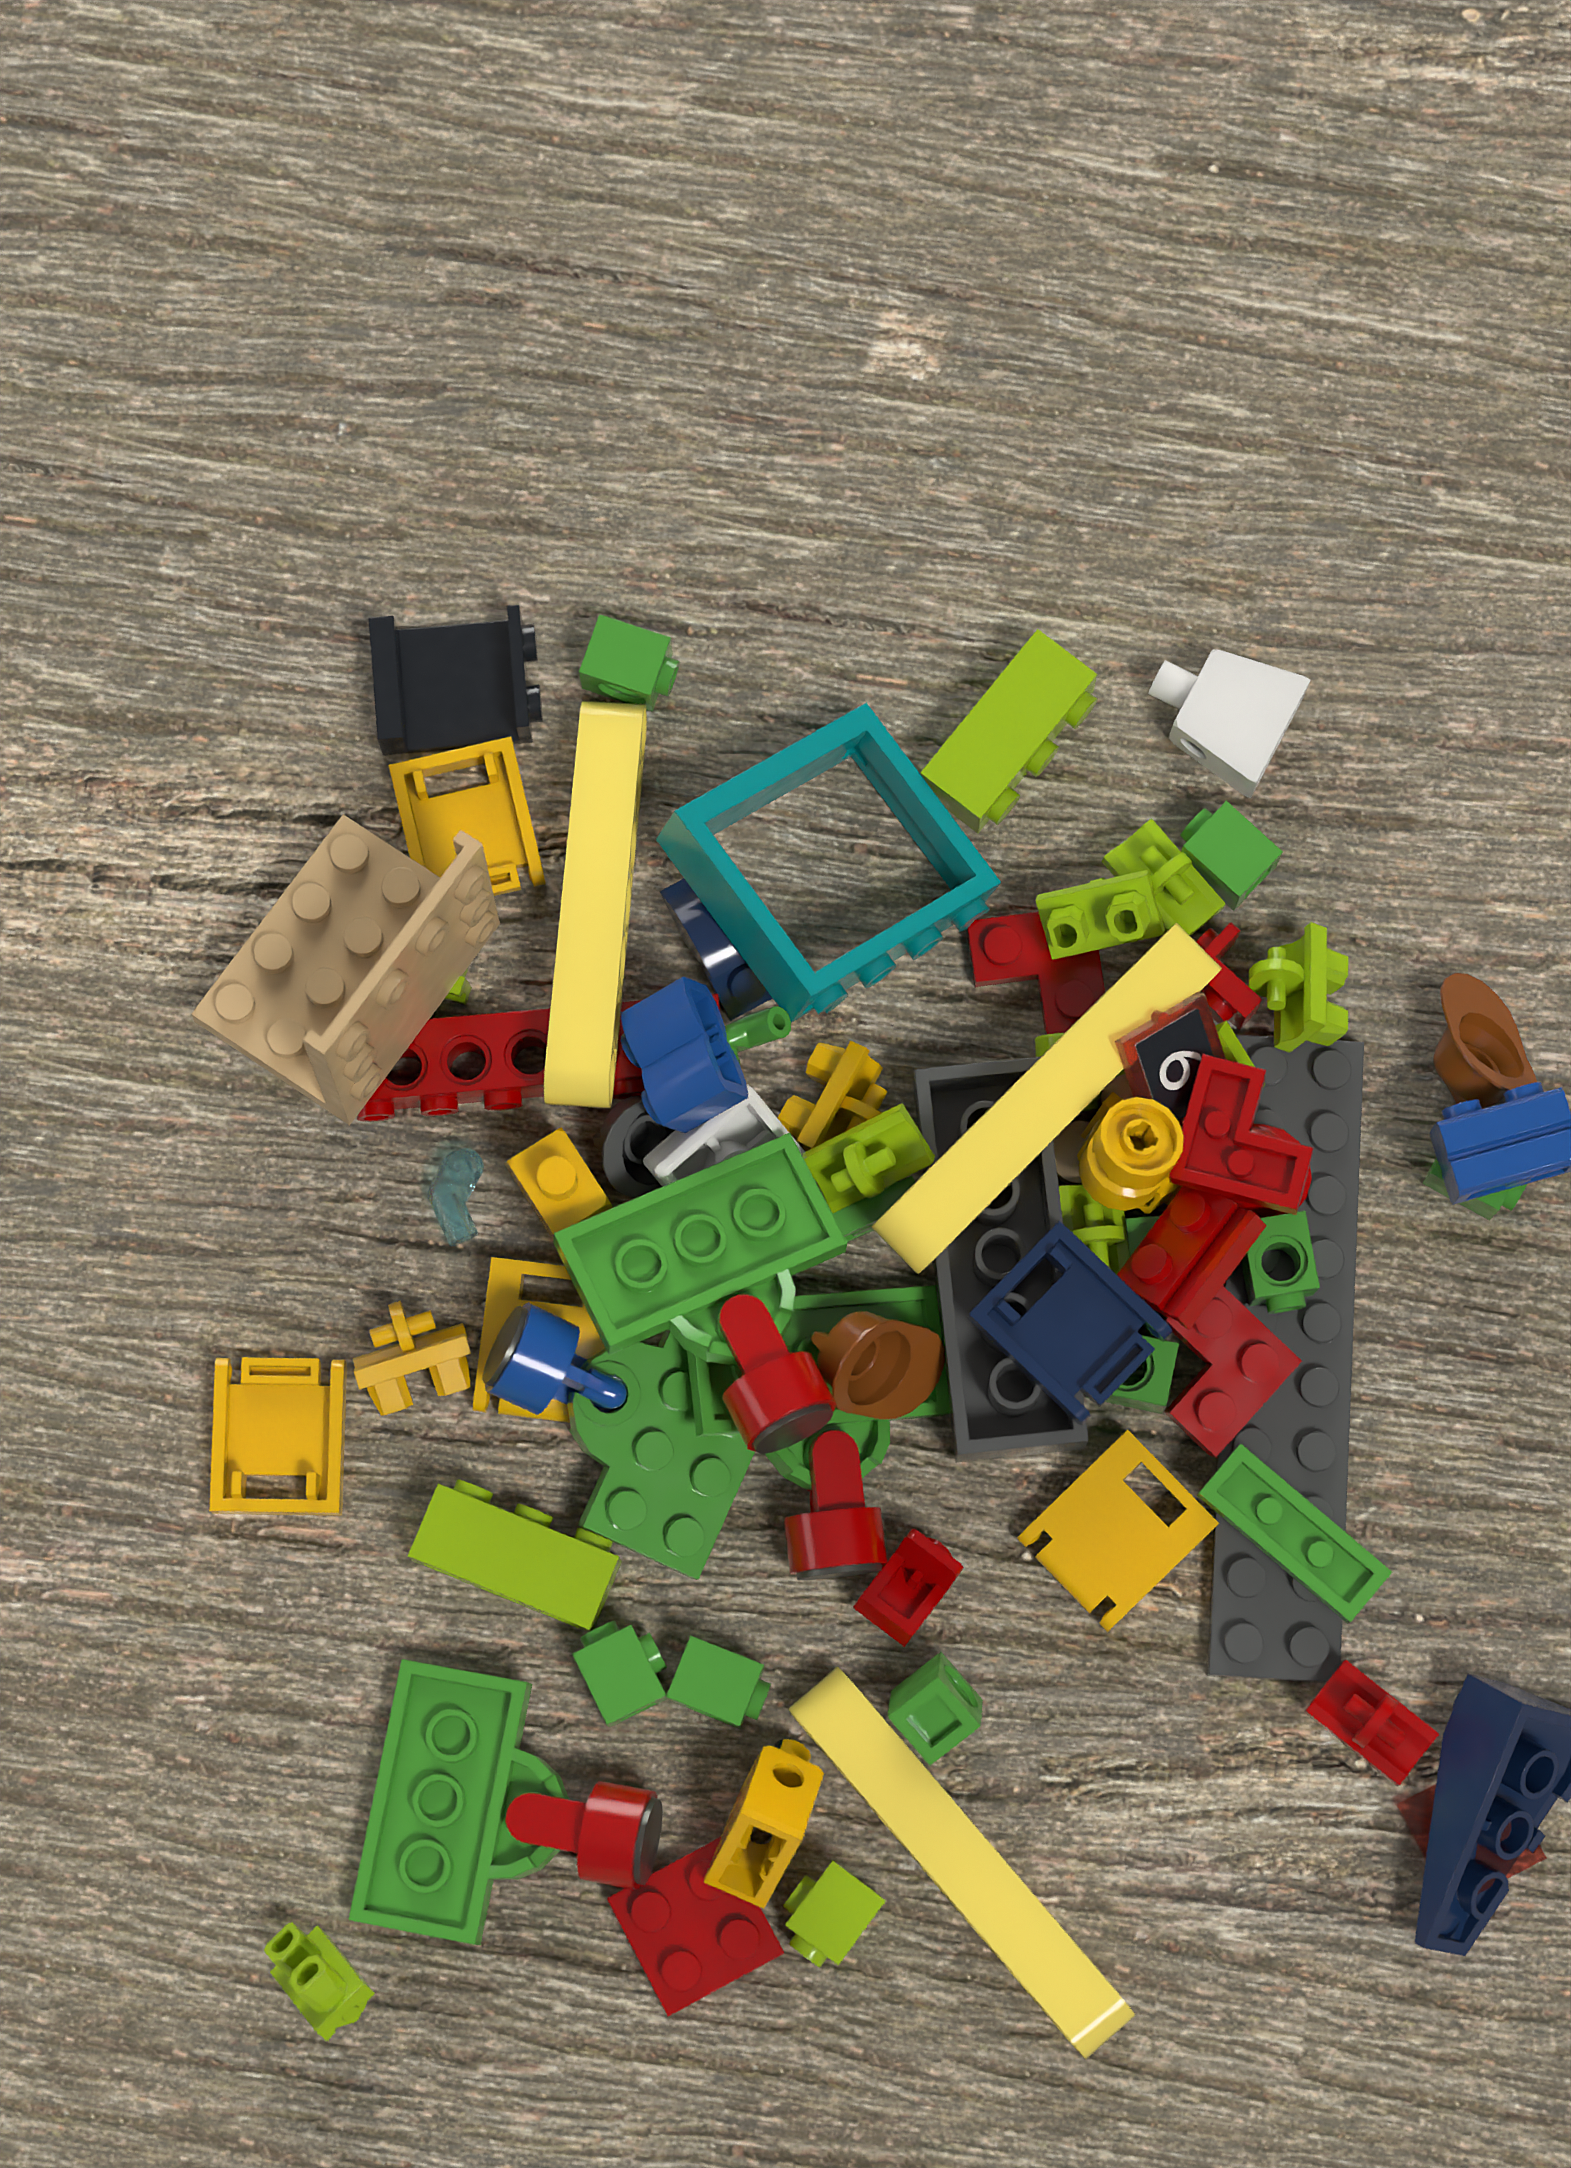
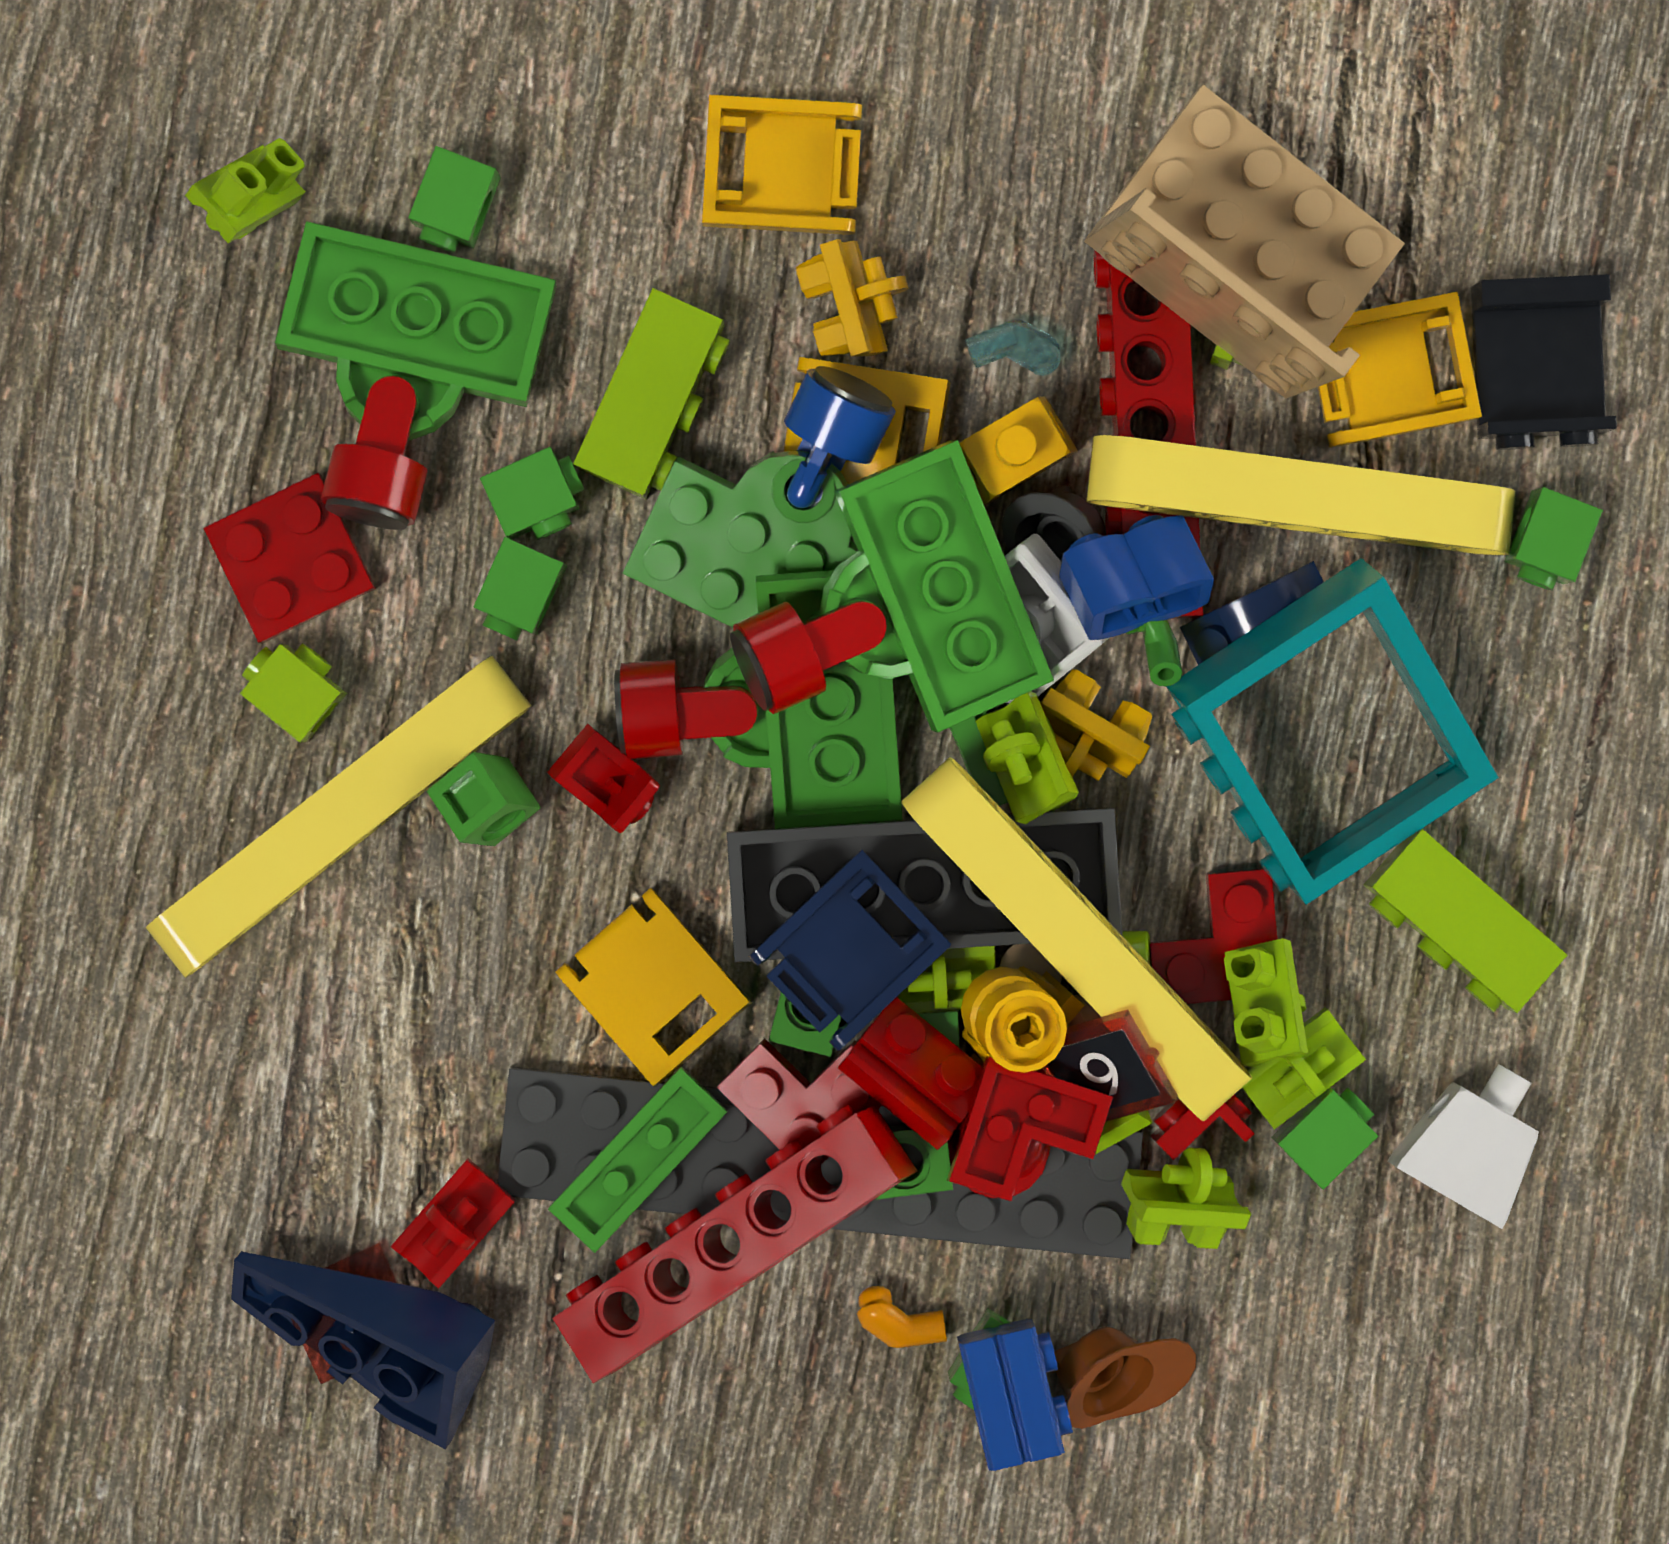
camera: 90 degrees right, 10 degrees up
(323, 1767) = (453, 200): none -> bright green brick
(777, 1800) = (380, 630): yellow torso -> none
(879, 1364) = (817, 757): dark orange piece -> none
(1446, 1273) = (893, 1325): none -> light orange arm
(1480, 1556) = (870, 1165): none -> red brick

